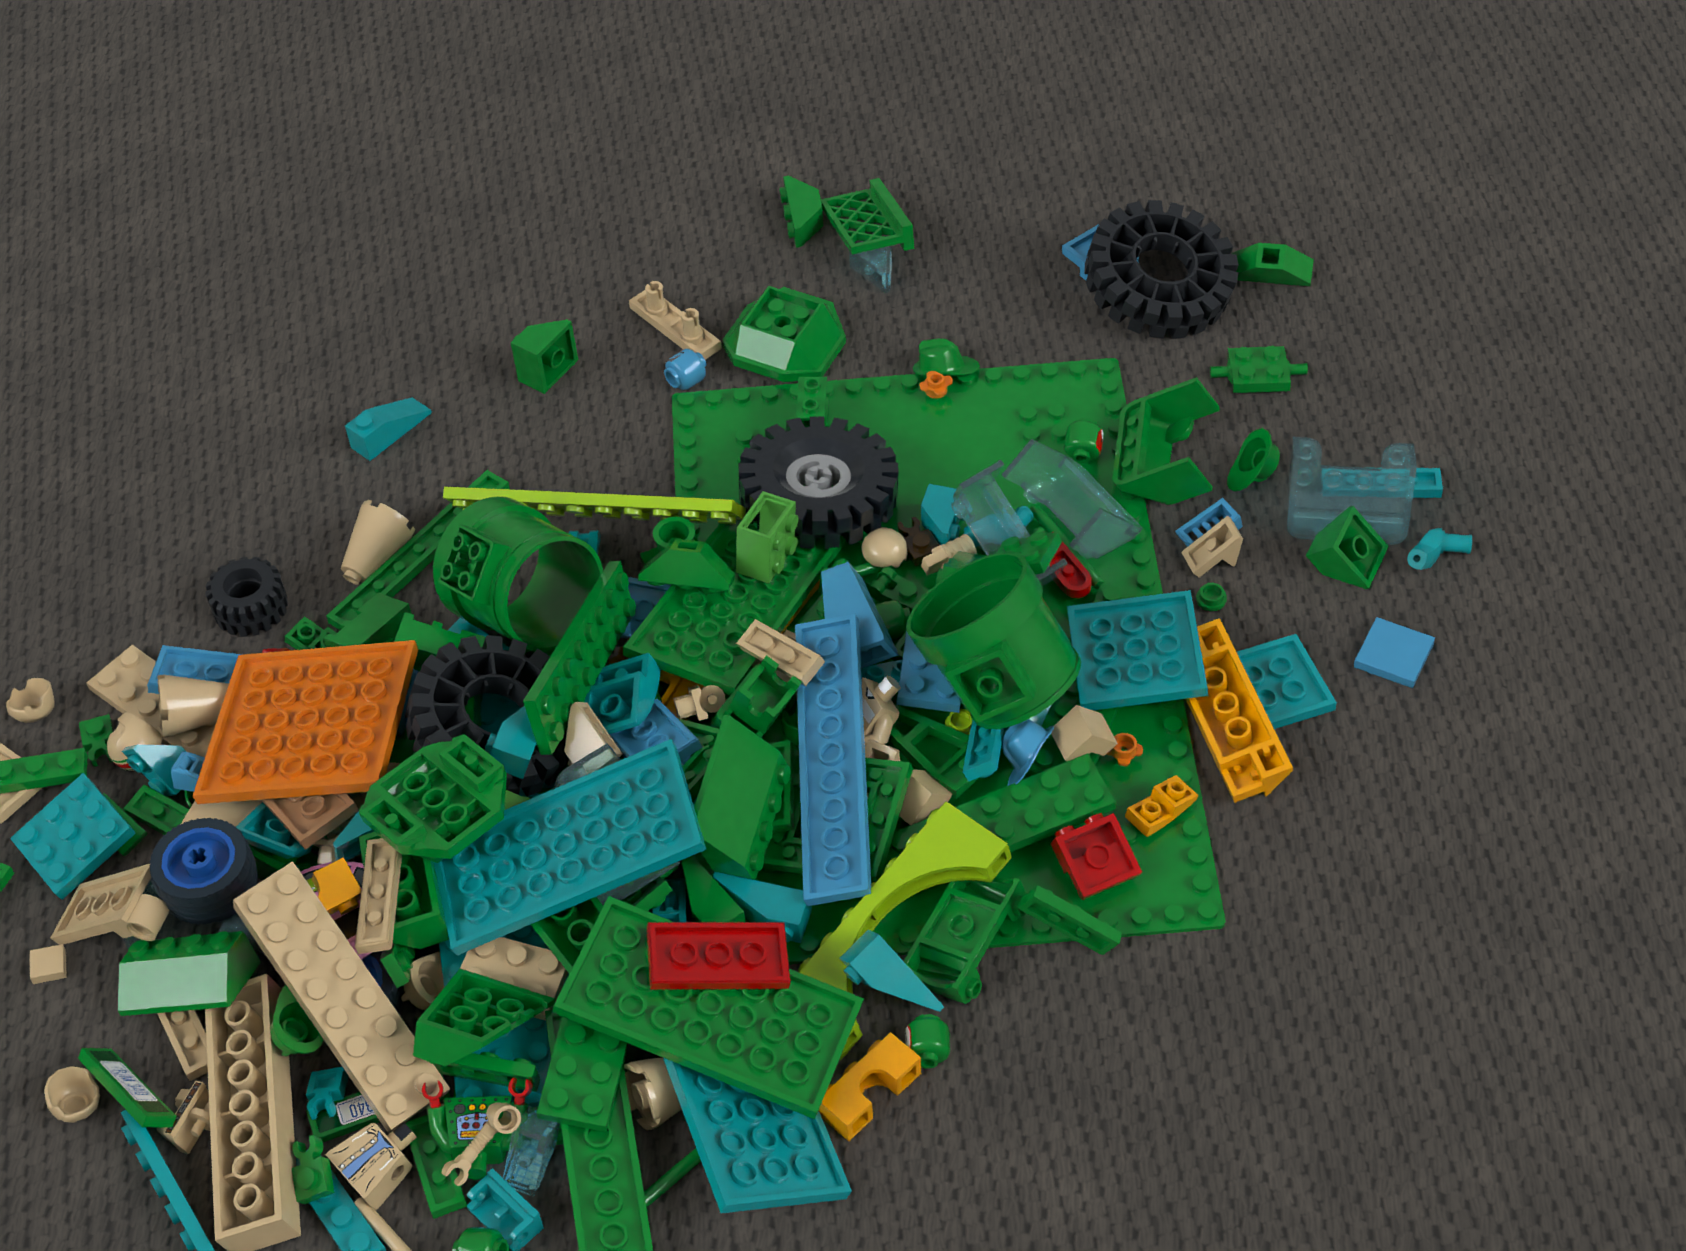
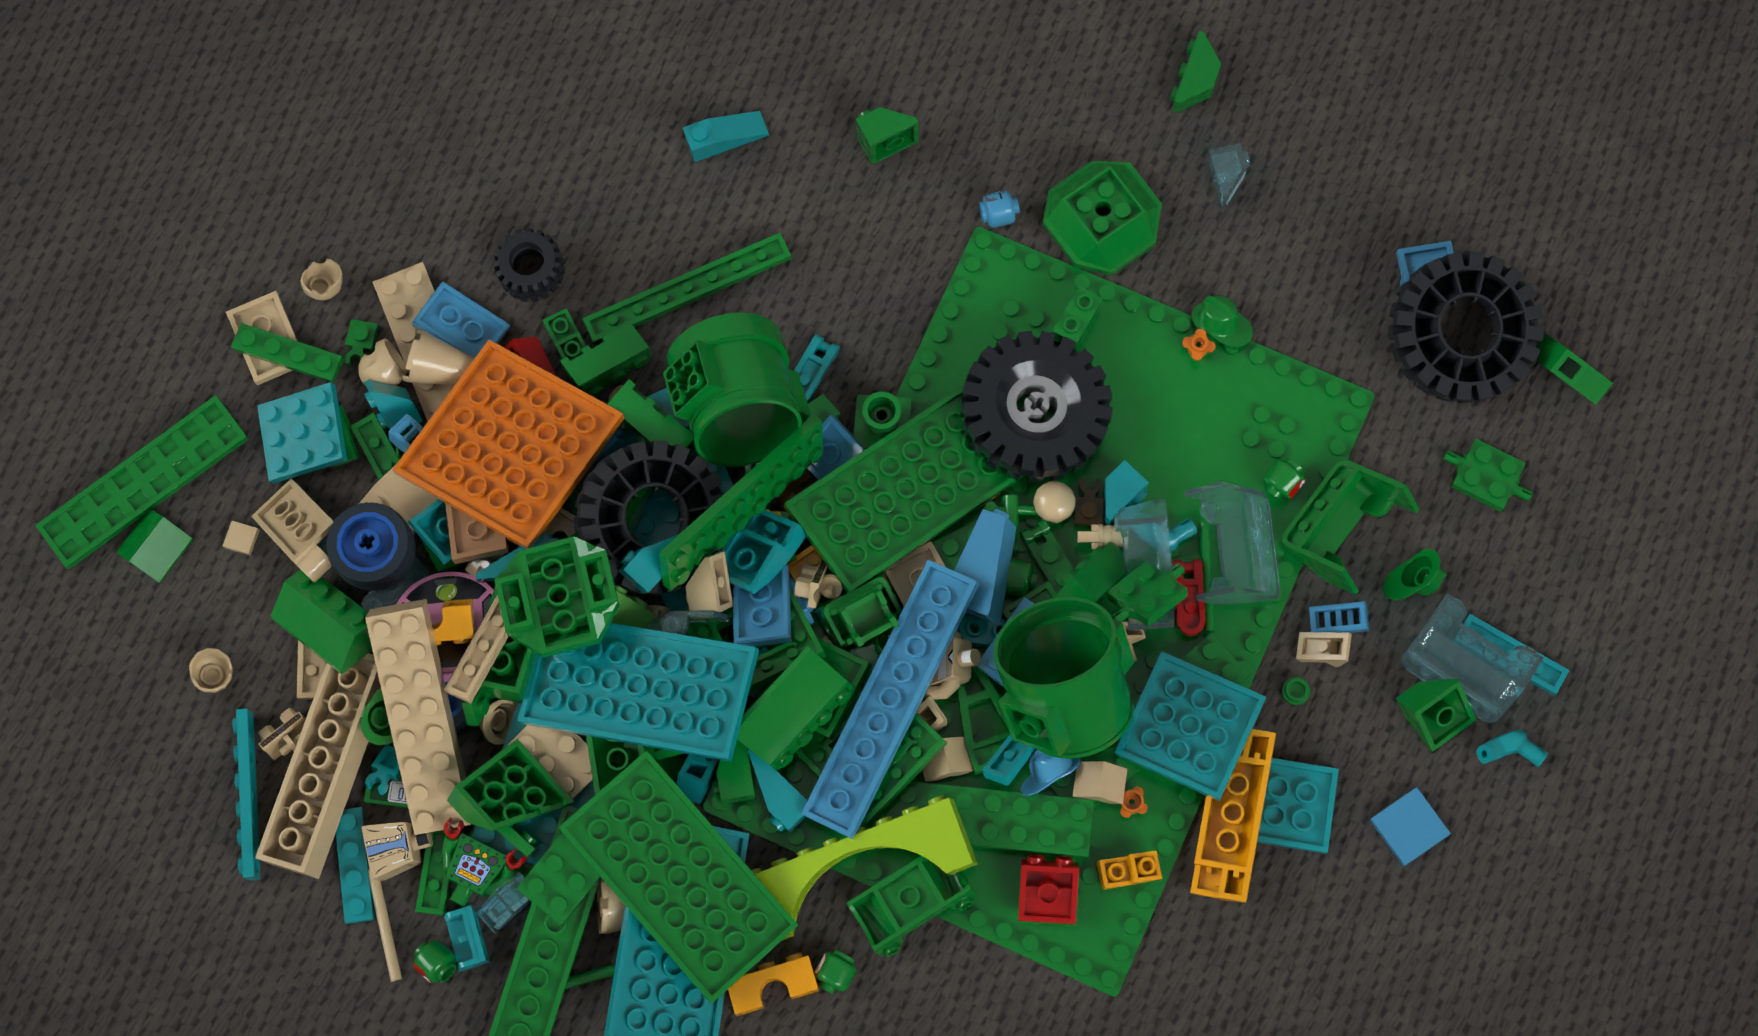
camera: 30 degrees right, 25 degrees up
(127, 1087) = (249, 690): tile -> none
(313, 1175) = (344, 837): green plate -> none
(375, 538) = (651, 264): tan cone -> none
(507, 1124) = (488, 883): tan brick -> none
(608, 505) = (840, 336): lime plate -> none
(678, 326) = (1017, 150): tan plate -> none
(688, 566) = (875, 451): green slope -> none
(717, 955) = (703, 841): red tile -> none
(765, 552) = (969, 441): bright green piece -> none
(791, 656) = (900, 583): tan plate -> none
(879, 967) = (828, 910): teal slope -> none
(885, 211) = (1267, 124): green fence -> none
(1070, 920) = (994, 937): green plate -> none

